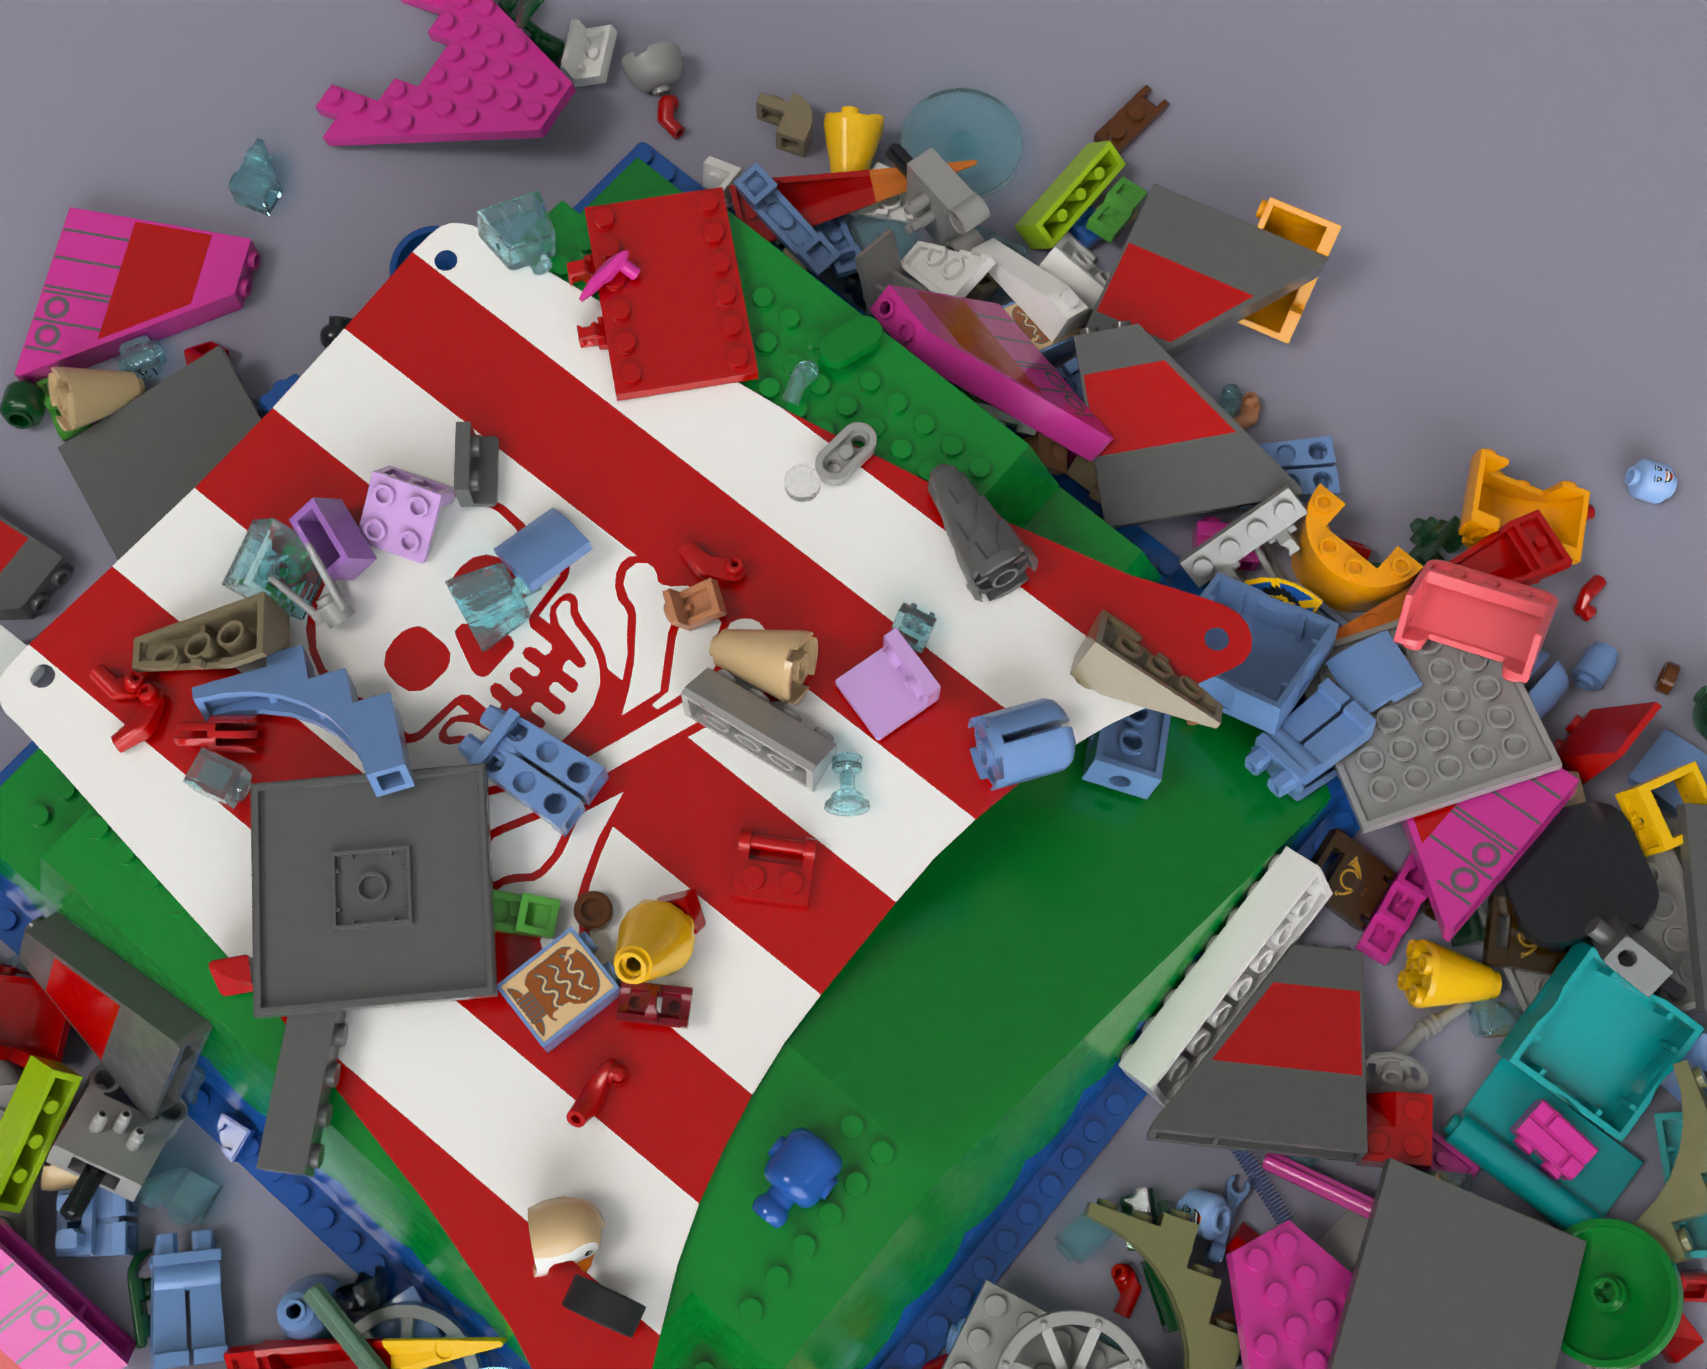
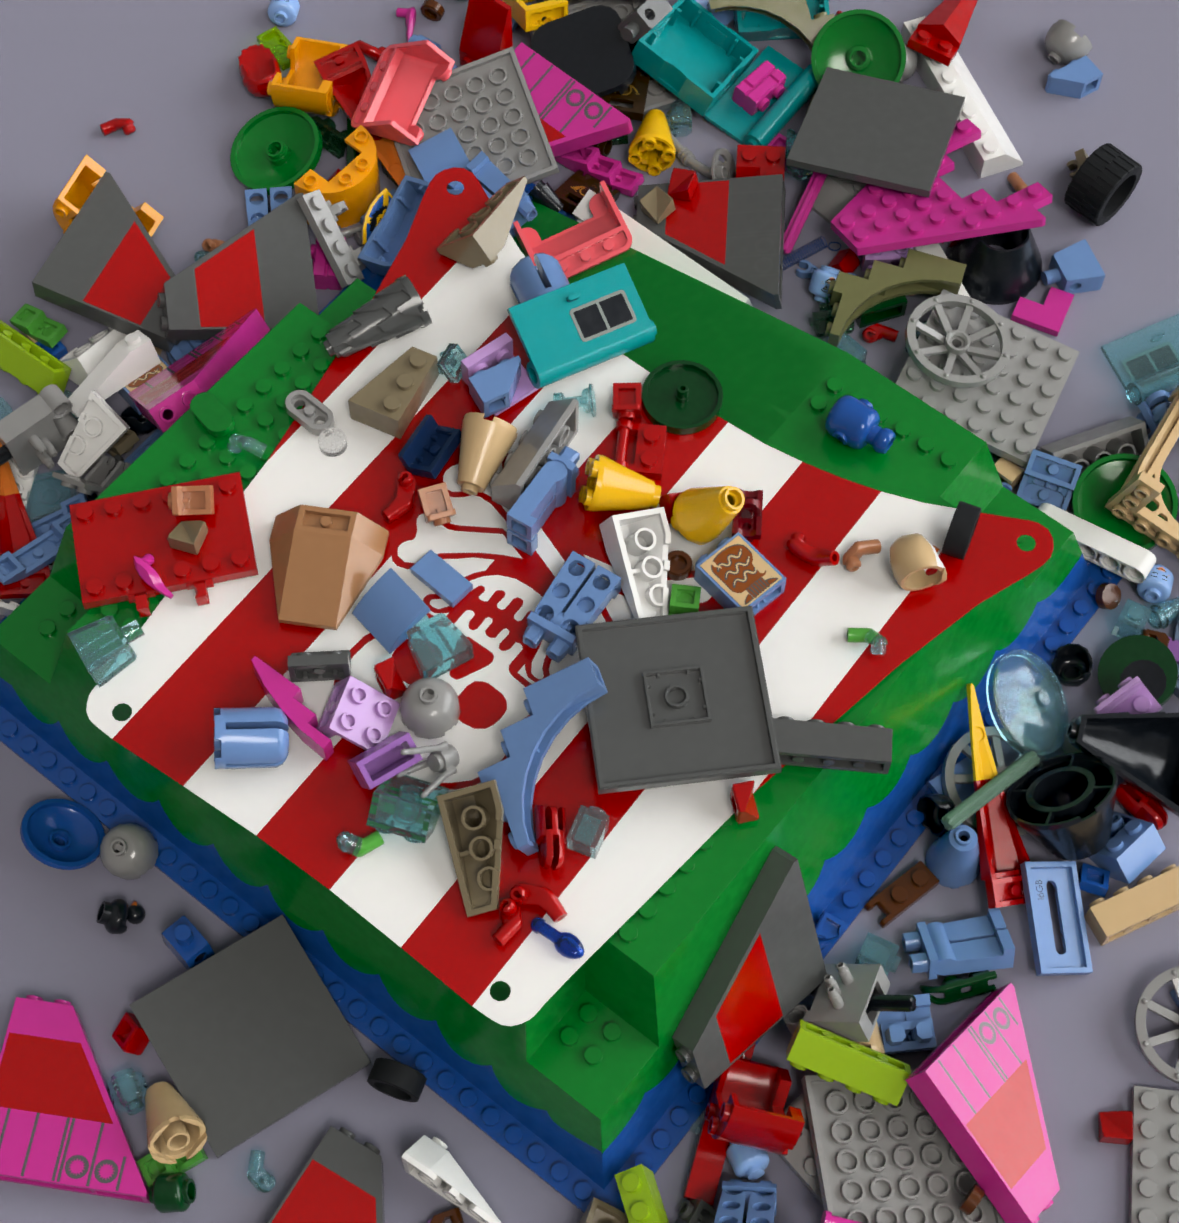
camera: 90 degrees left, 10 degrees down
(35, 489) = (257, 1174): none -> clear light blue arm
(86, 749) = (565, 942): none -> clear blue piece
(236, 516) = (357, 845): none -> arm
(277, 1241) = (903, 893): none -> reddish brown hinge
(378, 387) = (250, 737): none -> medium blue cylinder
(410, 596) = (430, 707): none -> light grey cylinder
(429, 429) = (289, 698): none -> dark pink slope
(449, 549) = (389, 679): none -> red slope
(462, 1163) = (870, 636): none -> arm
(593, 612) = (441, 578): none -> medium blue tile
(596, 1160) = (857, 550): none -> nougat arm
(602, 860) = (639, 555): none -> white wedge
(614, 470) = (322, 563): none -> medium nougat wedge
(660, 313) = (188, 536): none -> dark tan slope
(687, 730) = (540, 498): none -> medium blue hips
(702, 830) = (616, 487): none -> yellow cone
(707, 311) = (191, 500): none -> nougat bracket
(780, 595) = (429, 448): none -> dark blue bracket
(844, 852) = (627, 401): none -> red bracket
(858, 931) = (682, 397): none -> dark green piece
(864, 555) = (396, 393): none -> dark tan wedge
(864, 679) = (496, 386): none -> medium blue slope
(955, 789) = (581, 333): none -> teal door
(1217, 844) = (585, 243): none -> coral windscreen
(1317, 971) = (657, 205): none -> dark tan slope
(1328, 820) = (545, 195): none -> black cone
(1351, 1008) = (682, 184): none -> red slope
(1401, 475) = (276, 148): none -> green dish
(1441, 287) = (117, 124): none -> red arm
(1539, 451) = (257, 68): none -> red hair
(1589, 472) = (278, 44): none -> clear neon green plate
(1660, 649) = (410, 15): none -> dark pink bar

